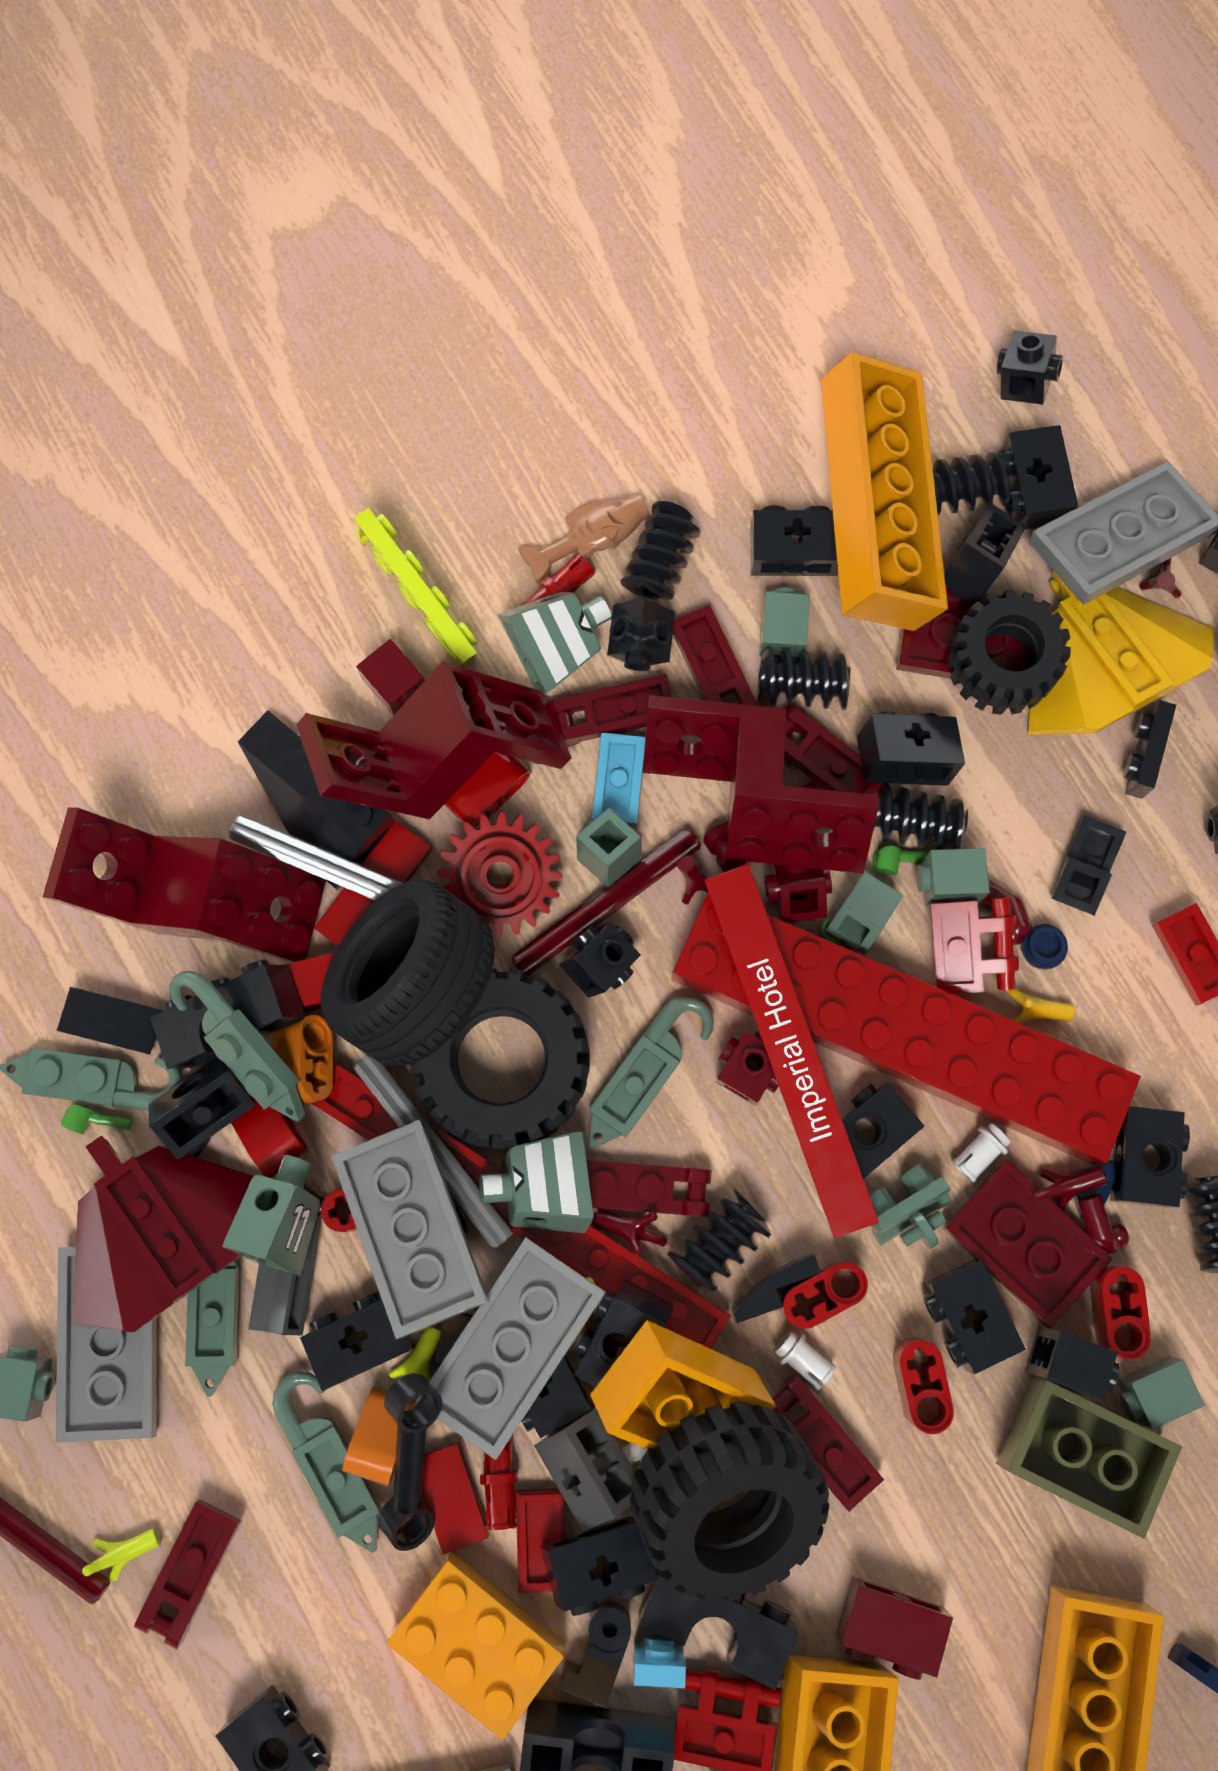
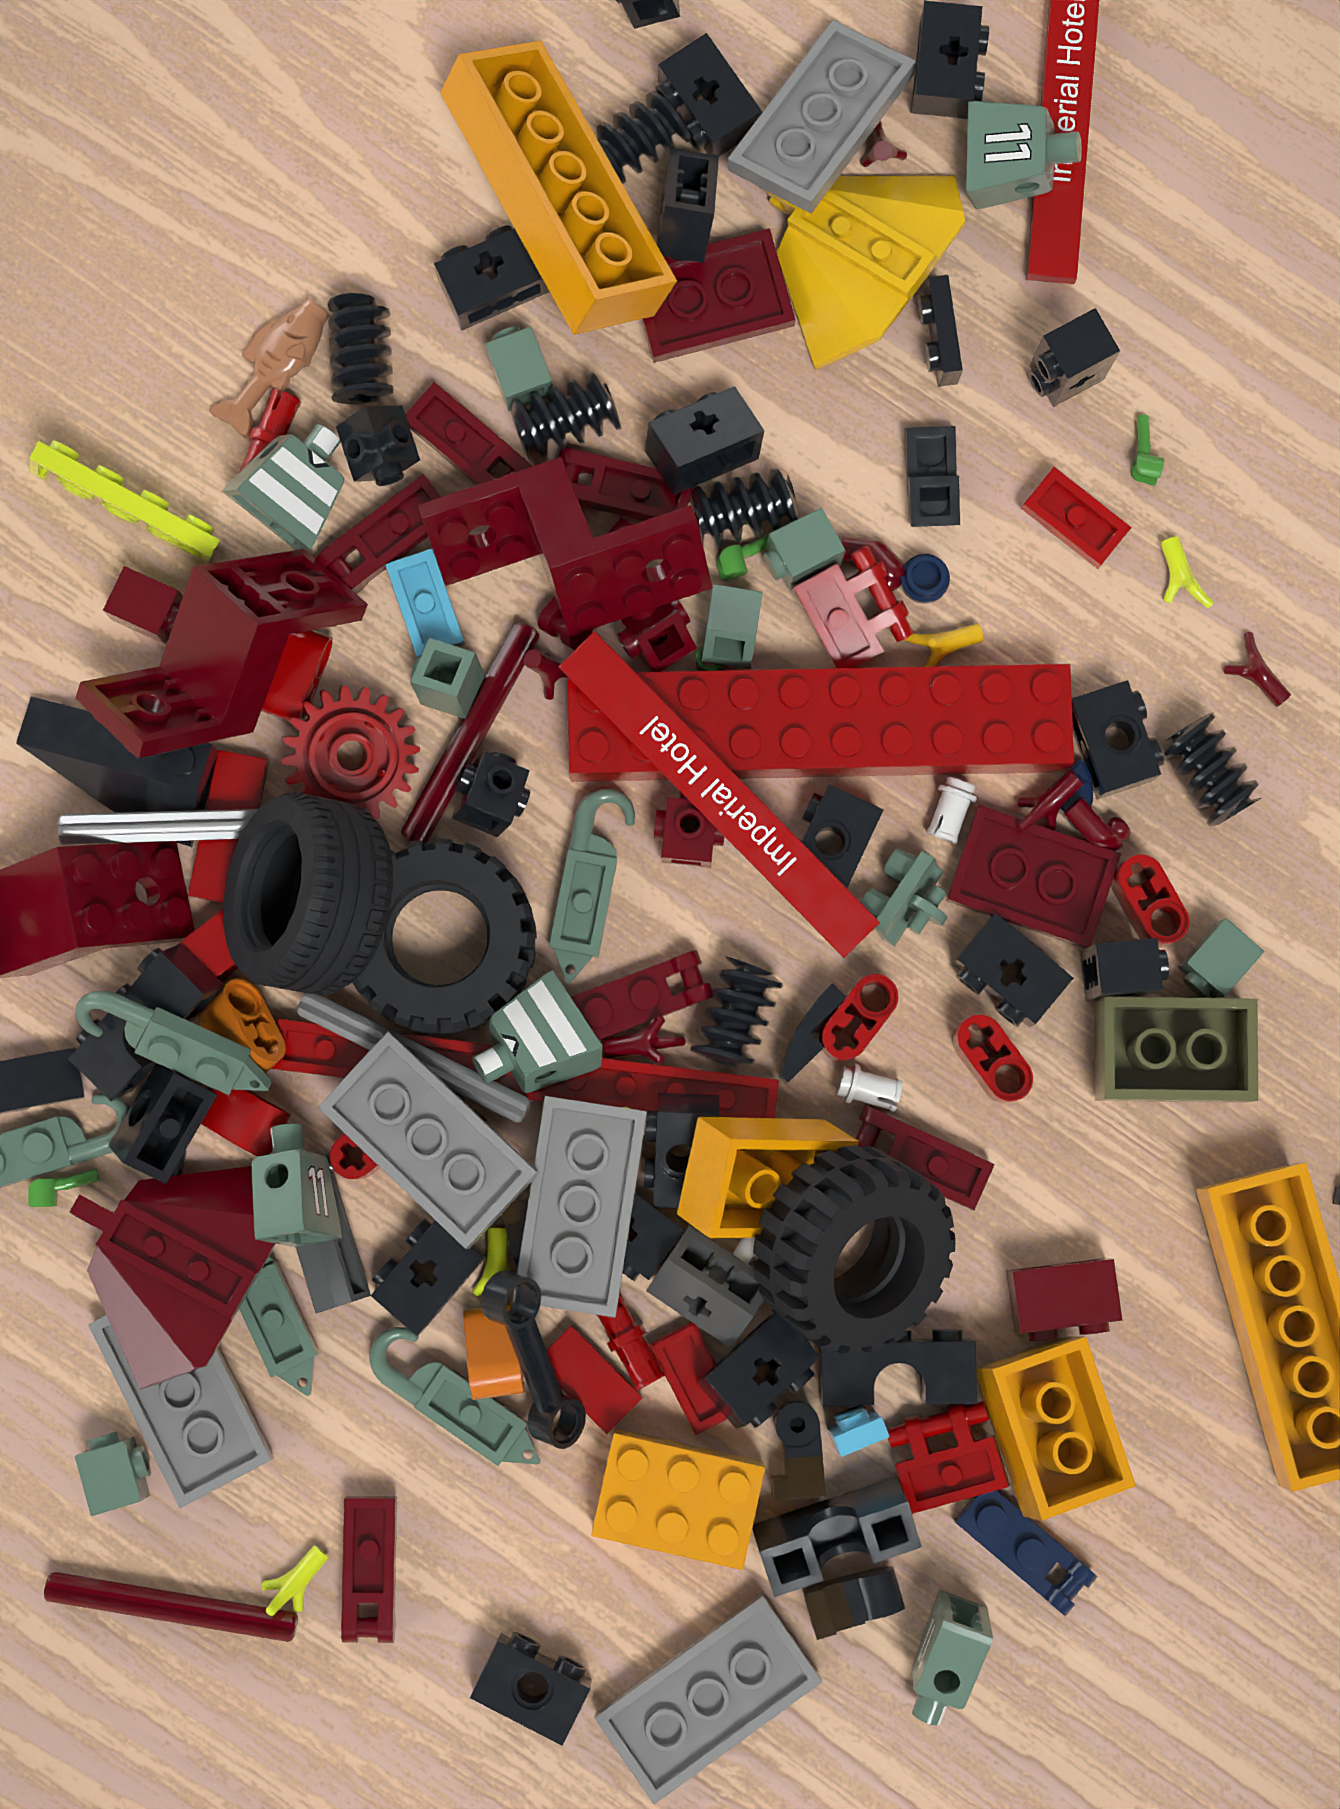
camera: 30 degrees left, 5 degrees up
(1026, 623) = (765, 259): black tyre -> none

